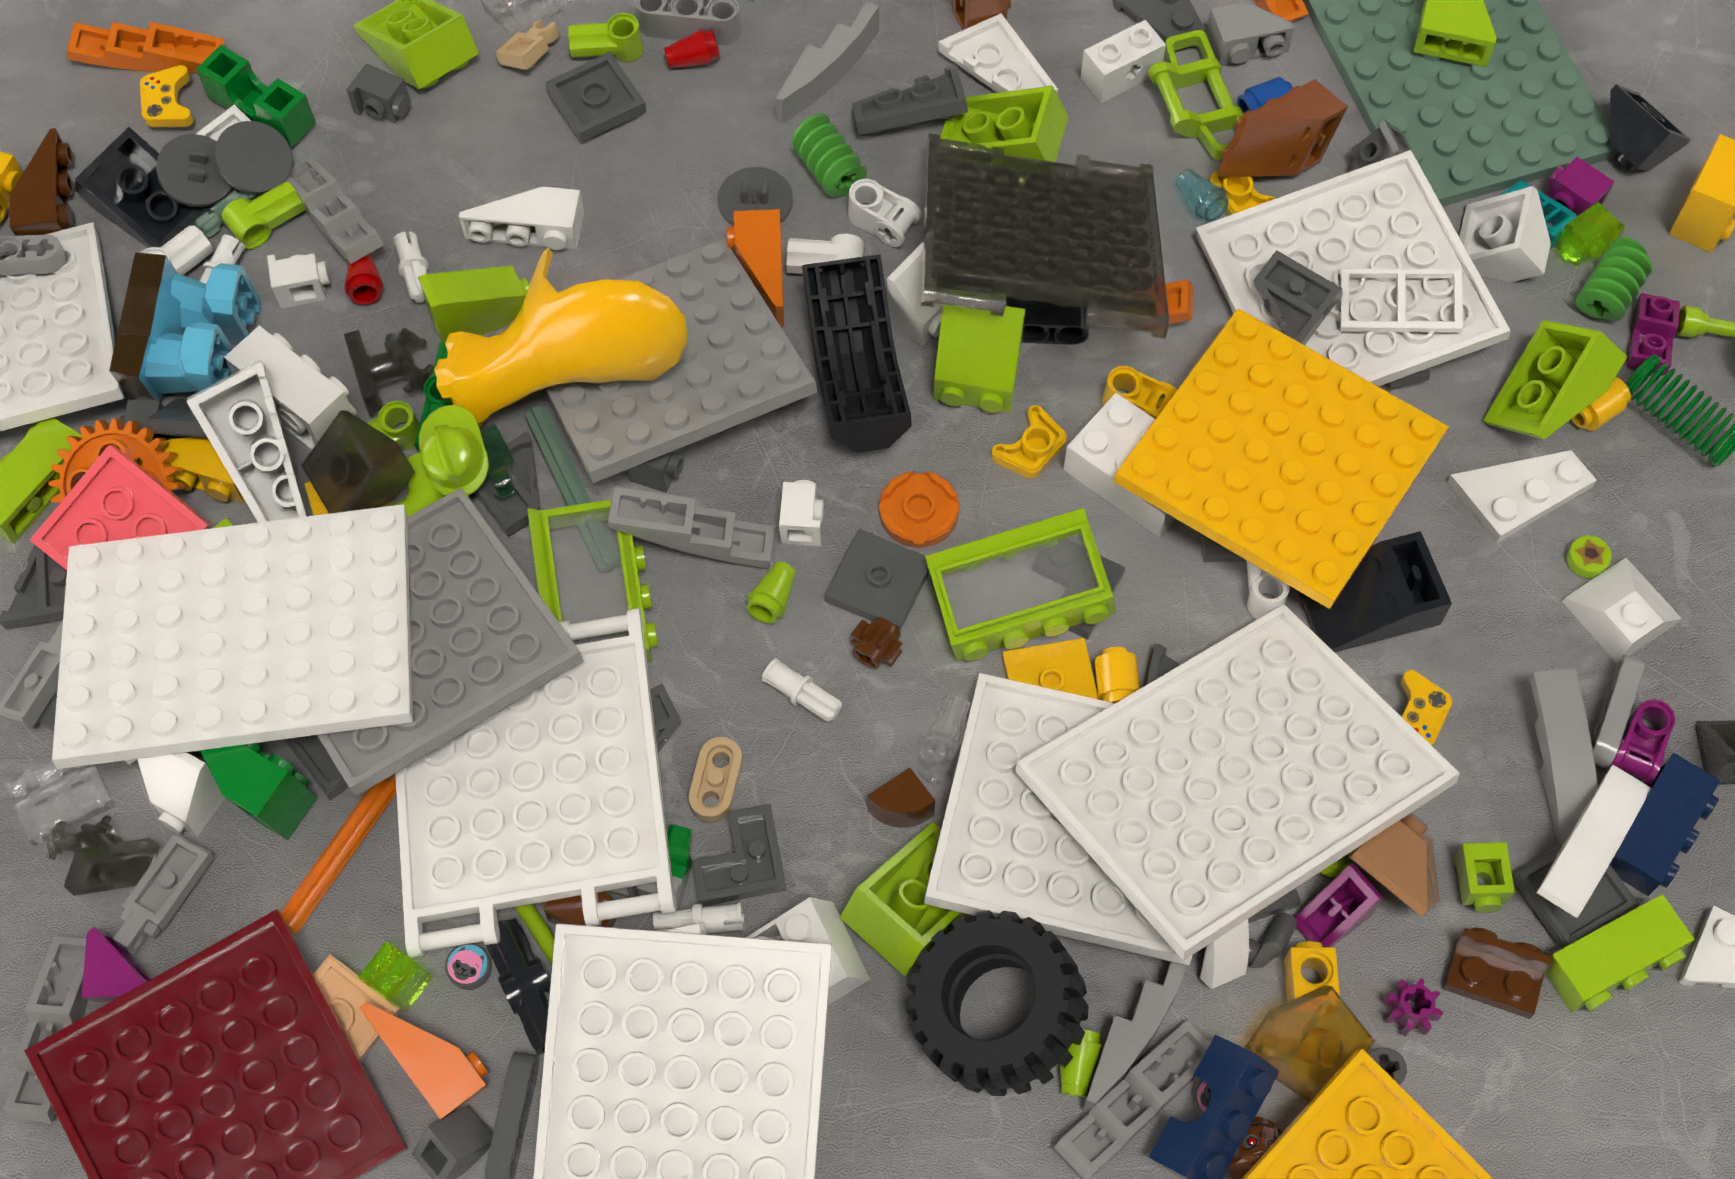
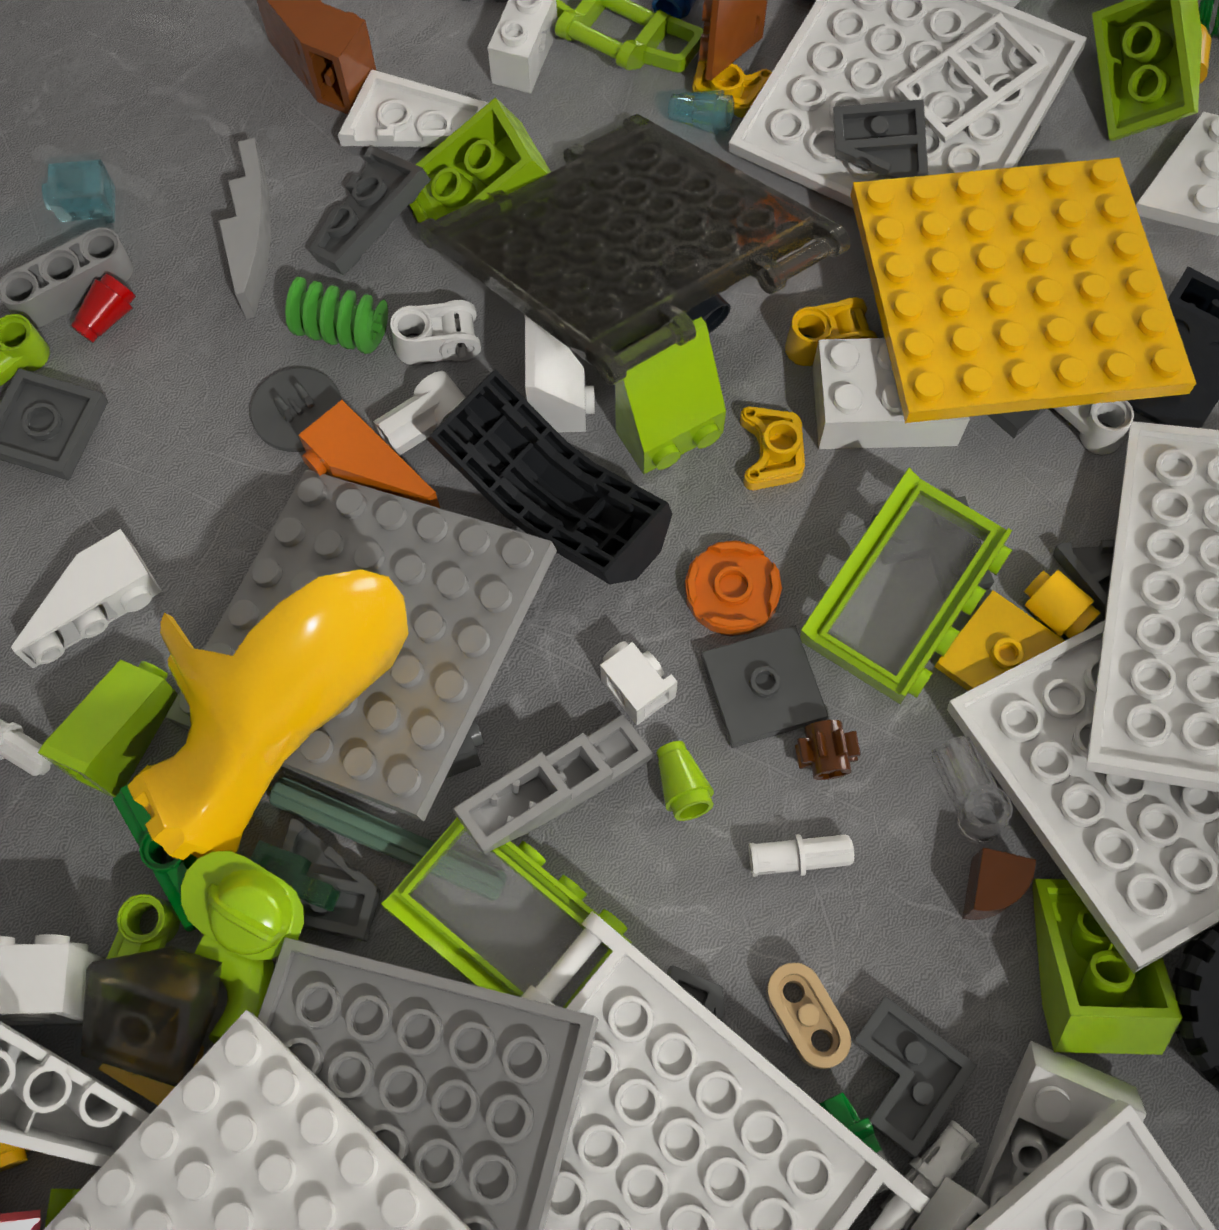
camera: 40 degrees left, 5 degrees up
(386, 366) = (76, 869): clear smoke piece -> none

